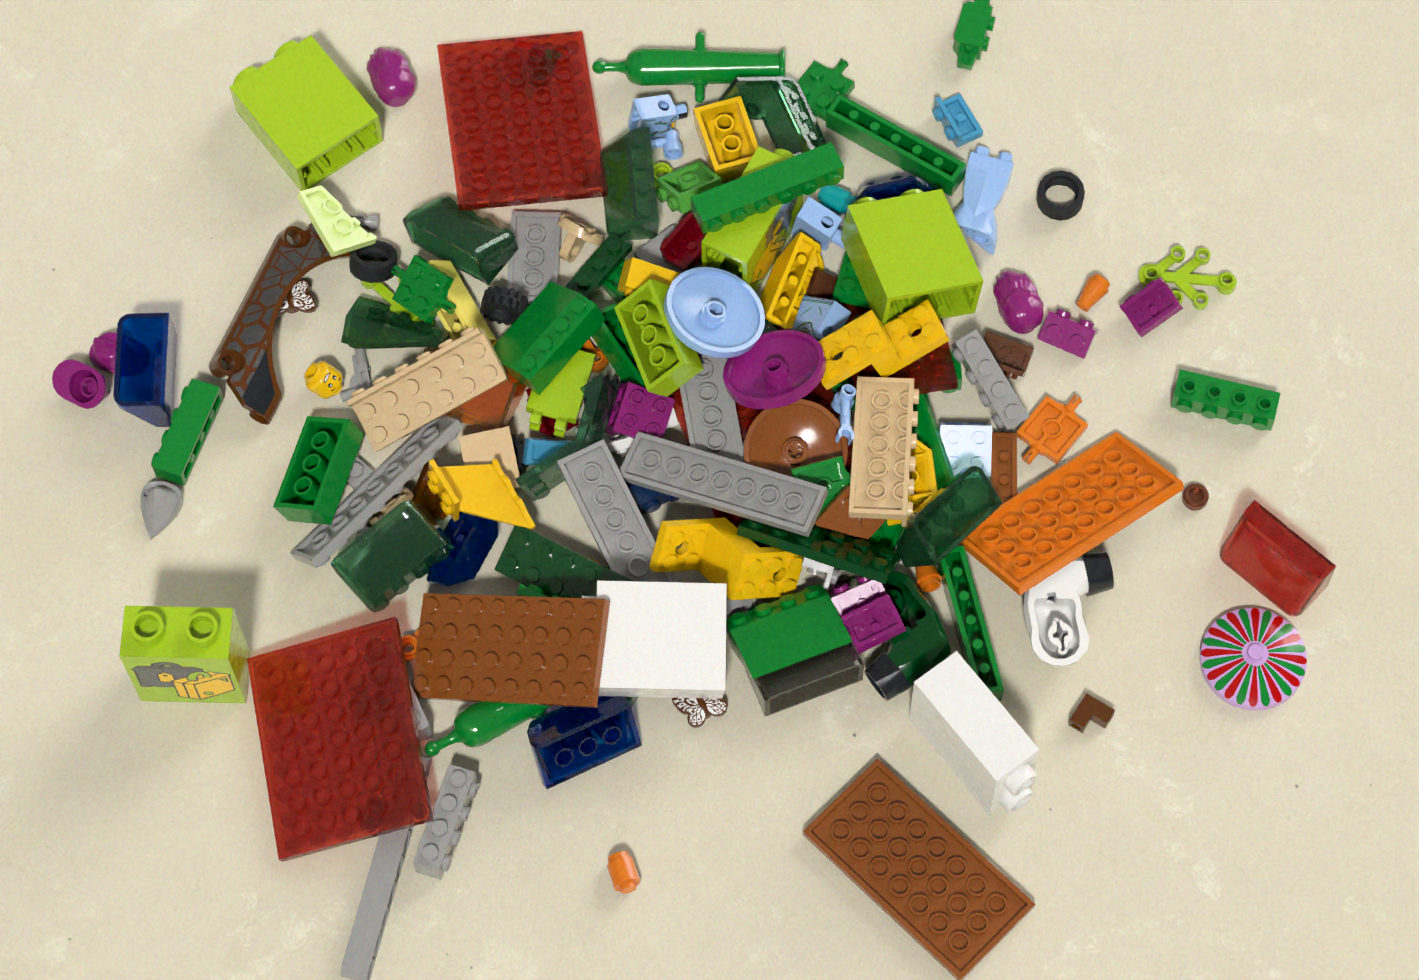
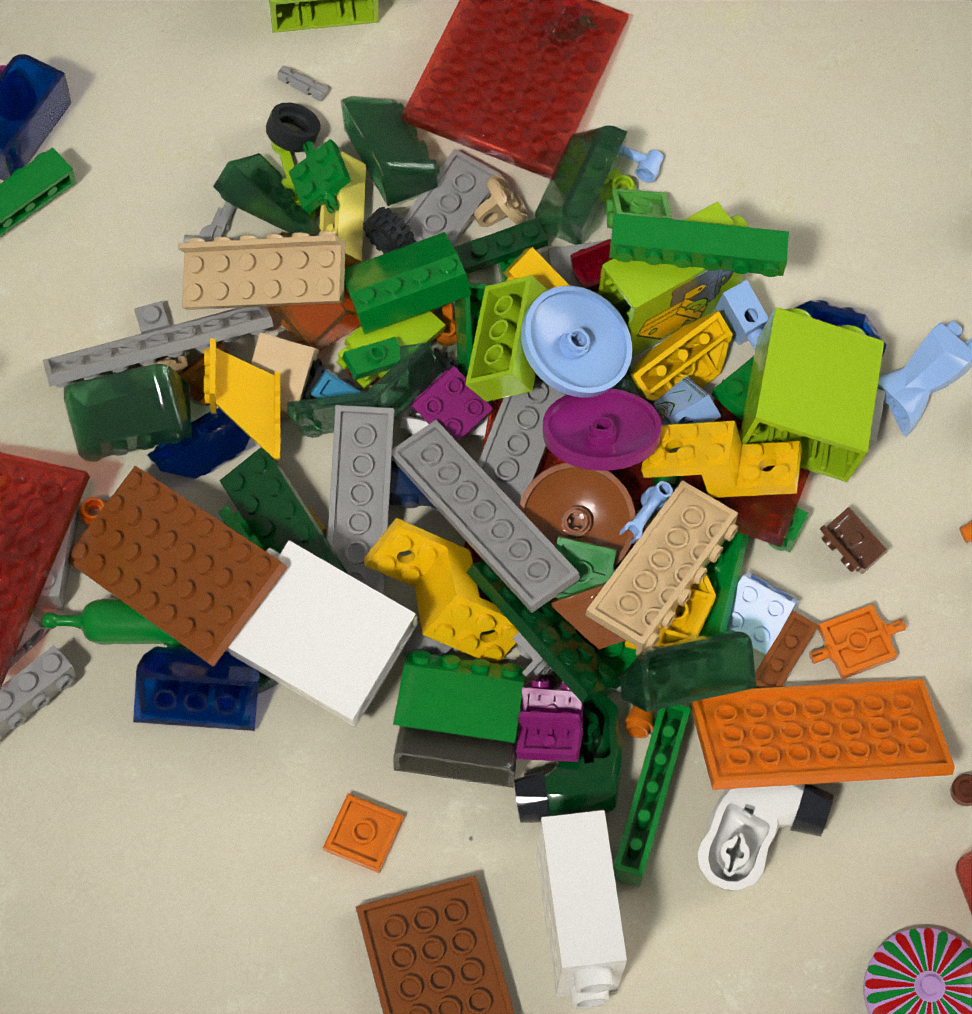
camera: 25 degrees right, 0 degrees up
(248, 339) = (124, 143): panel -> none
(298, 300) = (193, 123): reddish brown animal -> none
(318, 470) = (114, 295): green brick -> none
(323, 379) = (175, 213): yellow head -> none
(332, 223) = (273, 71): yellowish green wing -> none
(560, 409) = (372, 358): none -> green plate
(623, 872) = (155, 846): orange brick -> none
(656, 113) = (649, 128): light blue torso -> none
(694, 66) = (721, 104): green piece -> none
(700, 709) = (331, 727): reddish brown animal -> none
(725, 137) = (705, 178): yellow brick -> none
(772, 775) = (363, 833): none -> orange tile
(782, 108) = (777, 180): clear green windscreen -> none
(822, 285) = (711, 374): copper tile -> none
(823, 85) = (828, 189): green plate -> none
(835, 198) = (776, 294): teal brick -> none
(895, 145) = (869, 277): green brick -> none
(957, 120) = (947, 285): dark azure bracket -> none
(989, 380) = (820, 557): light grey brick -> none
(1018, 301) = (900, 495): magenta hair -> none
(1068, 333) = (933, 553): magenta bracket -> none
(1091, 710) = (724, 948): reddish brown piece -> none

